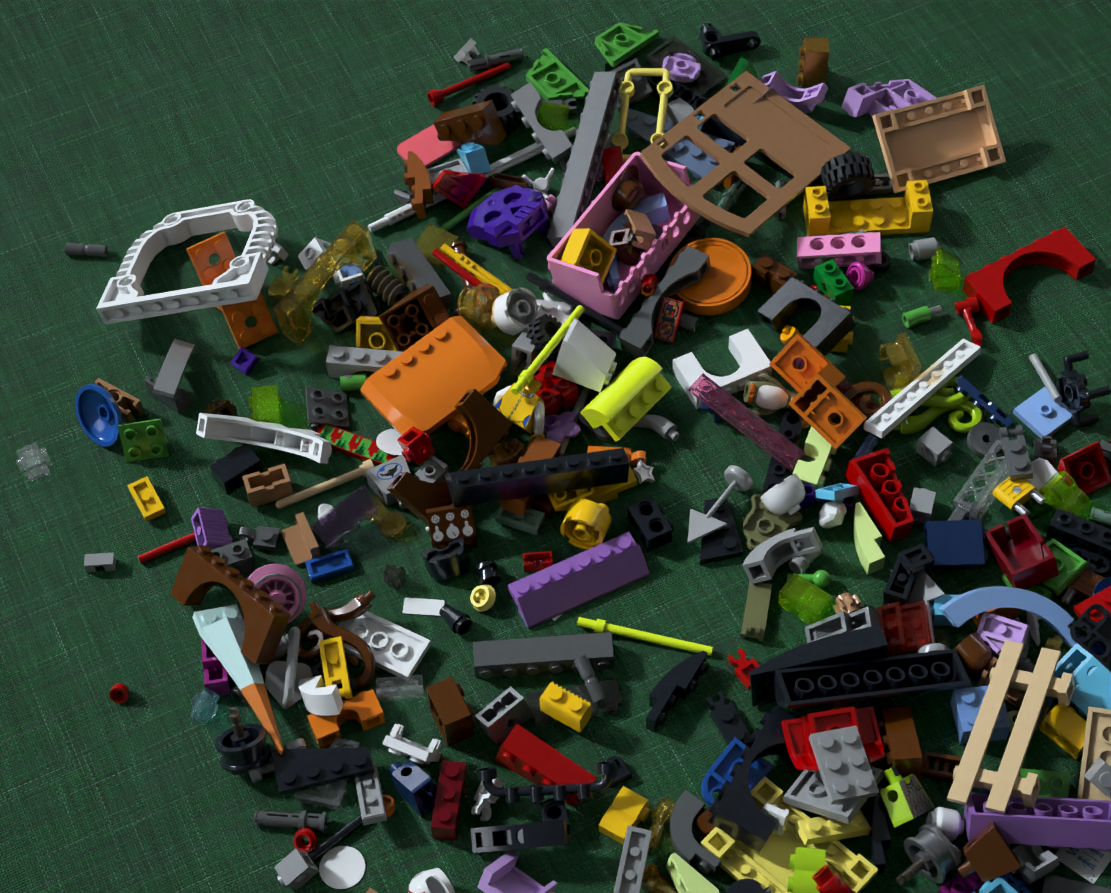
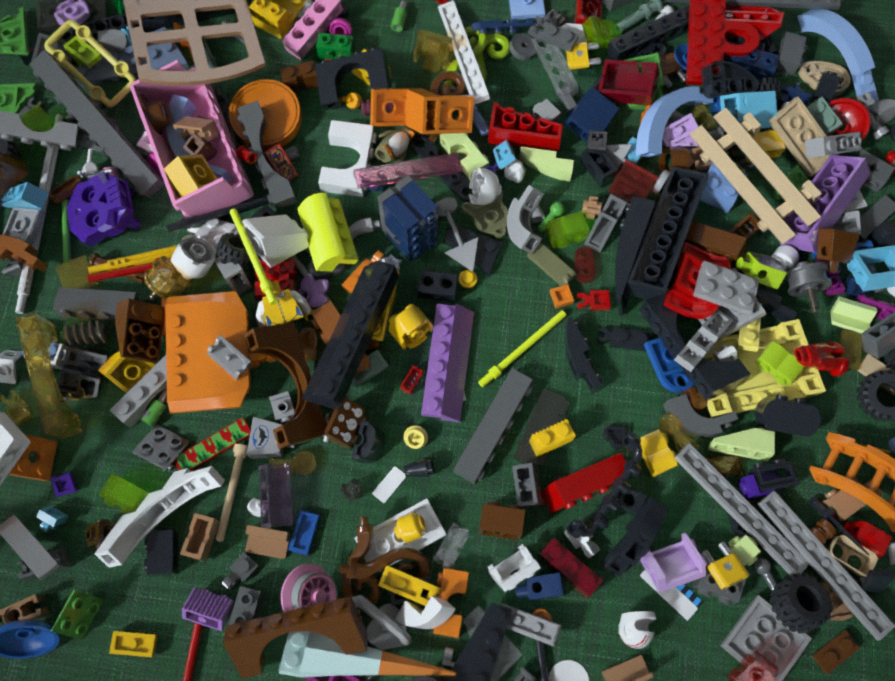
camera: 60 degrees left, 15 degrees up
(209, 371) = (51, 518): none -> medium azure tile
(388, 442) = (233, 418): white sticker -> none
(391, 638) = (410, 527): none -> yellow head
(416, 445) = (256, 403): red brick -> none
(438, 394) = (228, 357): none -> light grey hinge
(458, 186) = (41, 223): red wing -> none
(488, 574) = (399, 421): black wheel -> none
(588, 675) = (537, 406): dark grey piece -> none
(612, 162) = (113, 110): red tile -> none
(648, 102) = (82, 52): none -> lime slope
(679, 546) = (467, 279): none -> yellow plate
(688, 448) = (409, 218): none -> dark blue piece
(727, 637) = (561, 296): none -> orange plate
(769, 777) = (703, 340): none -> light grey slope
(782, 639) = (584, 263): none -> clear red plate
(934, 447) = (507, 77): light grey brick -> none

